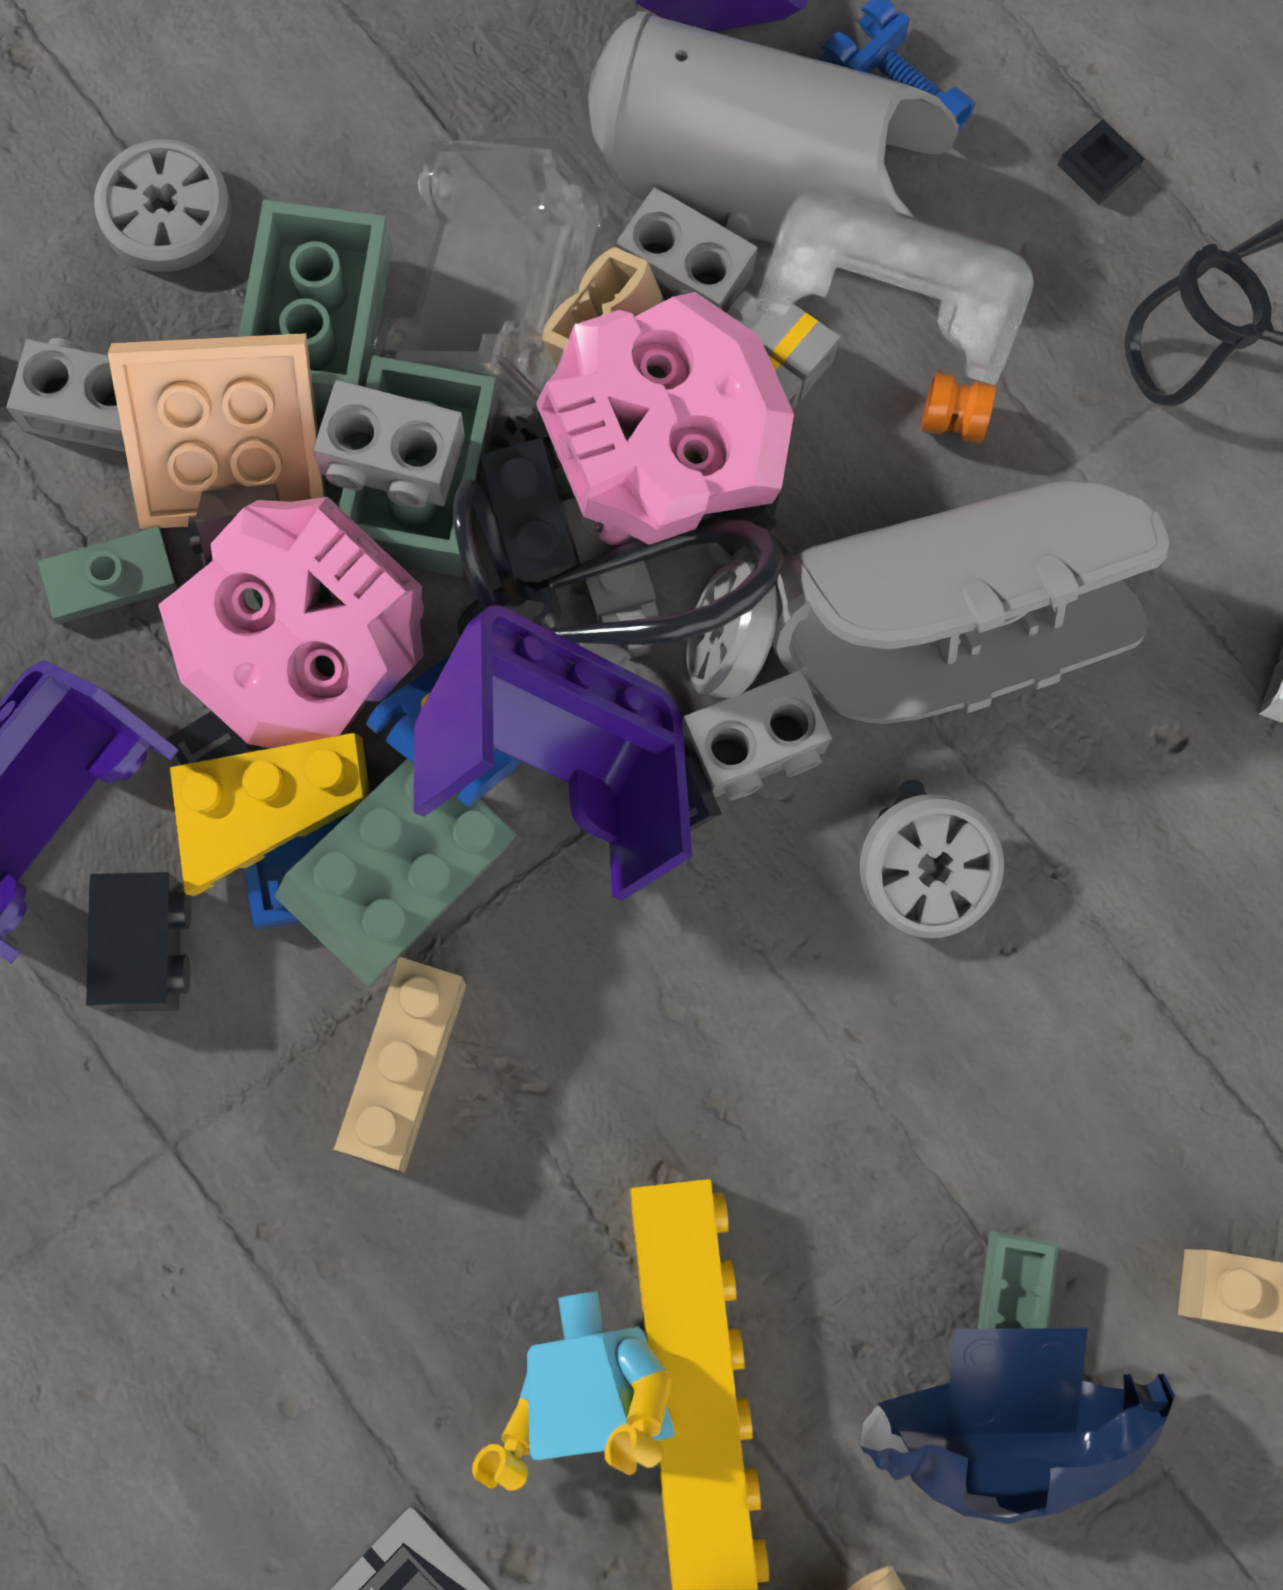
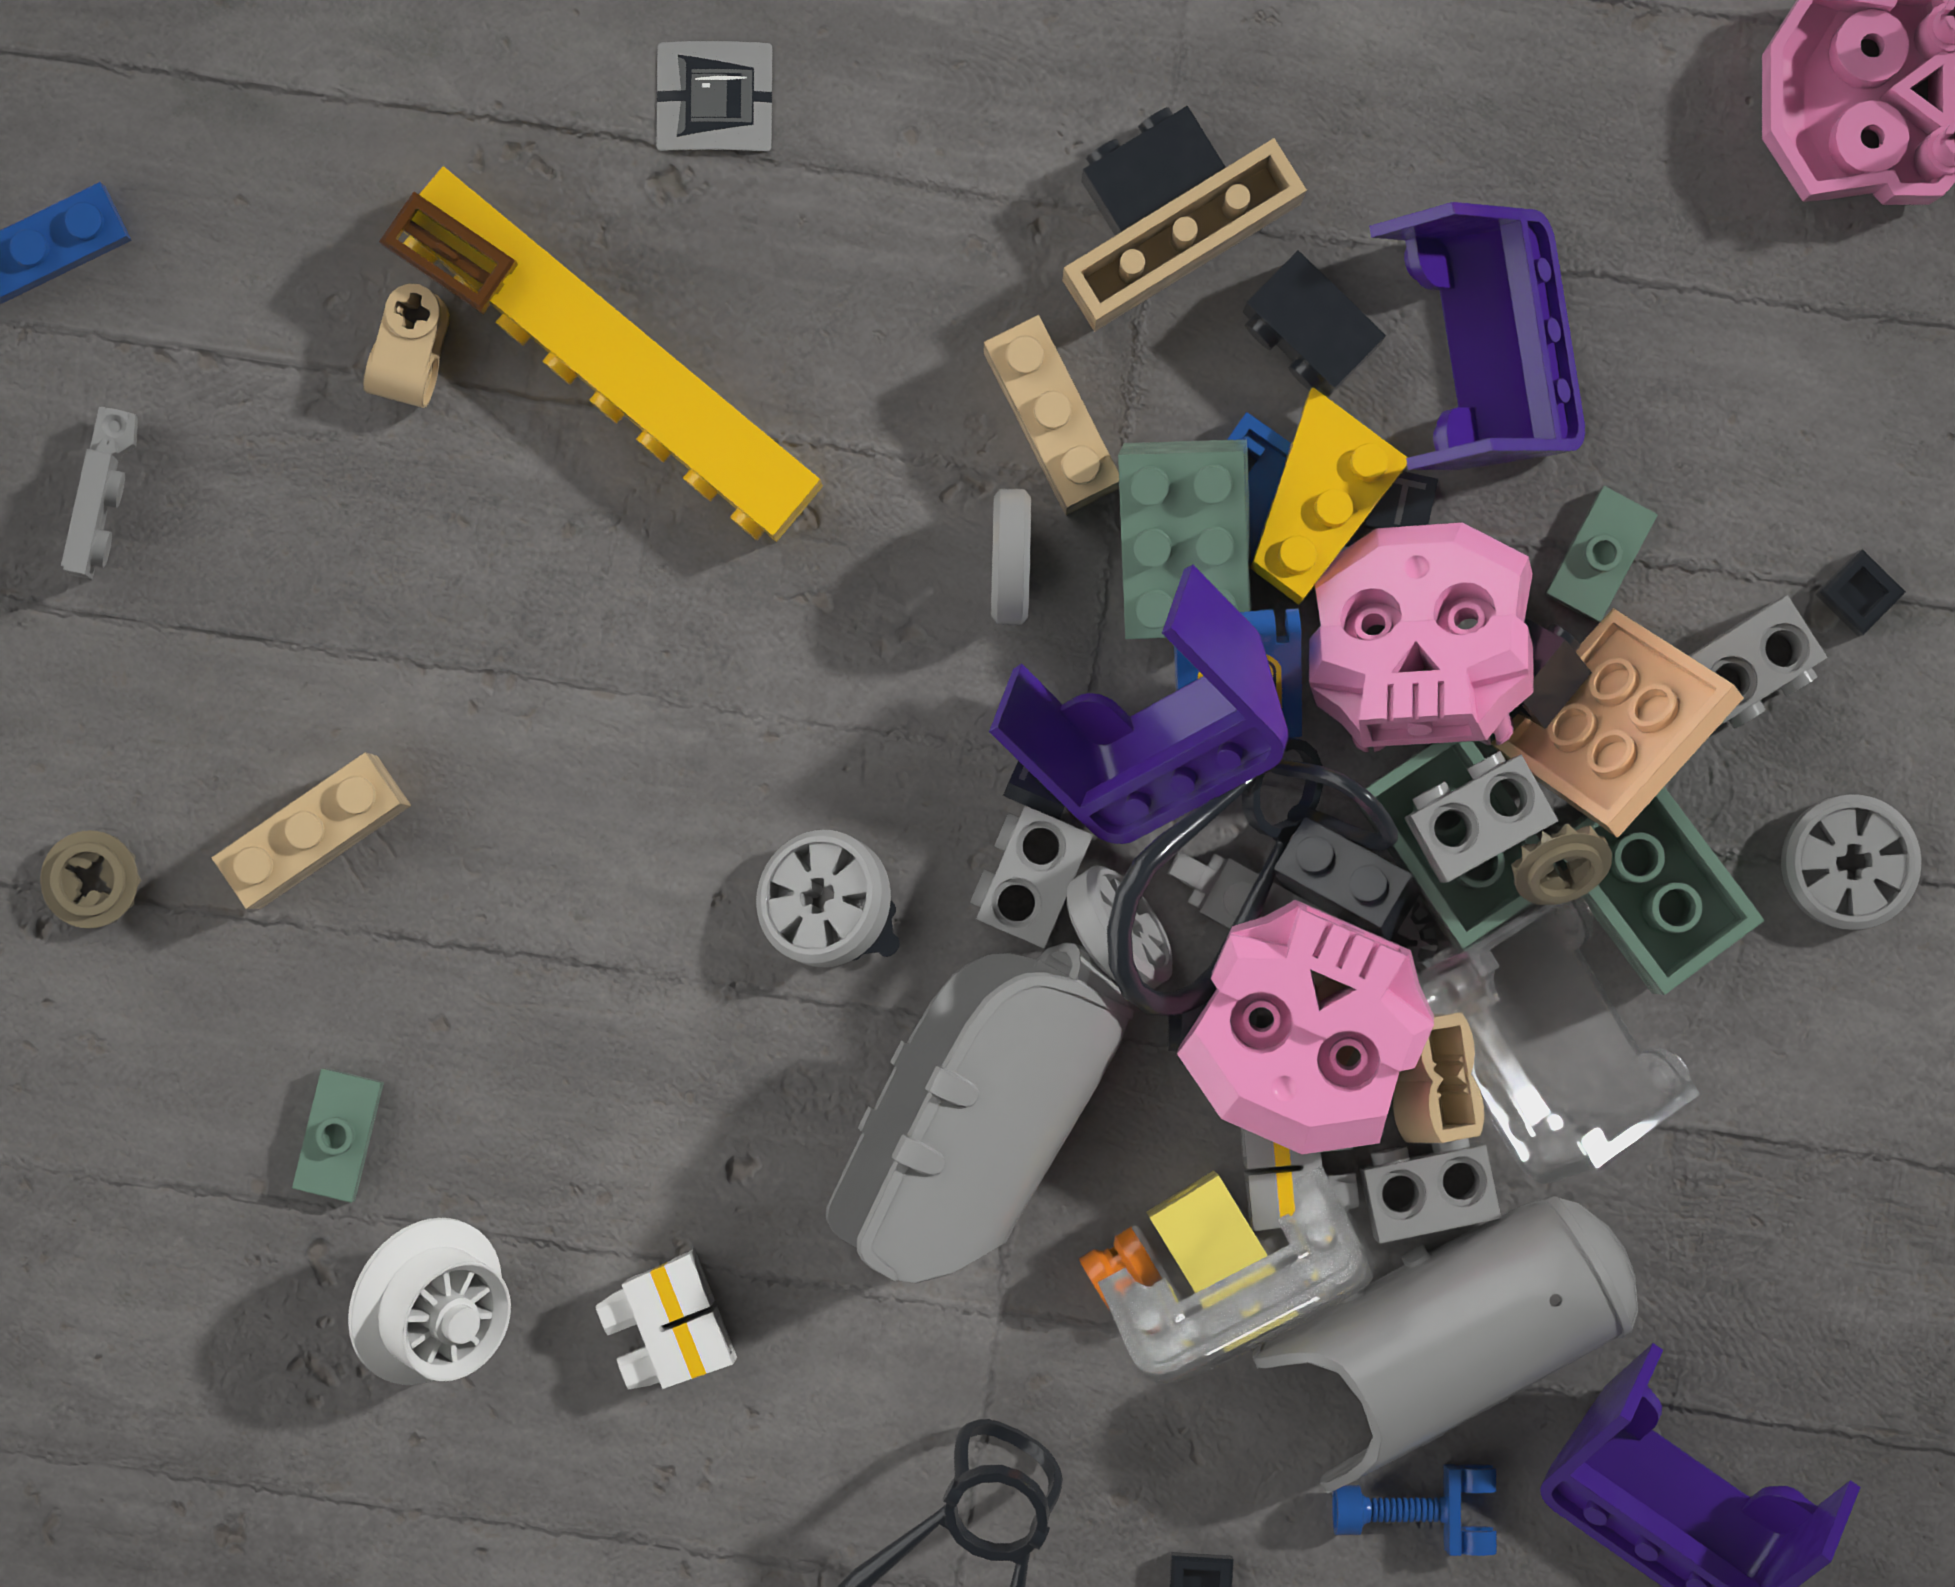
camera: 150 degrees right, 10 degrees up
(132, 1183) = (1149, 169): none -> black brick
(158, 1104) = (1184, 234): none -> tan brick
(365, 354) = (1547, 884): none -> dark tan gear
(541, 982) = (1011, 556): none -> light grey wheel
(584, 1398) = (722, 318): medium azure torso -> none
(875, 364) = (1206, 1232): none -> light yellow piece
(1017, 1426) = (423, 569): dark blue animal -> none
(1018, 1282) = (493, 654): sand green plate -> none

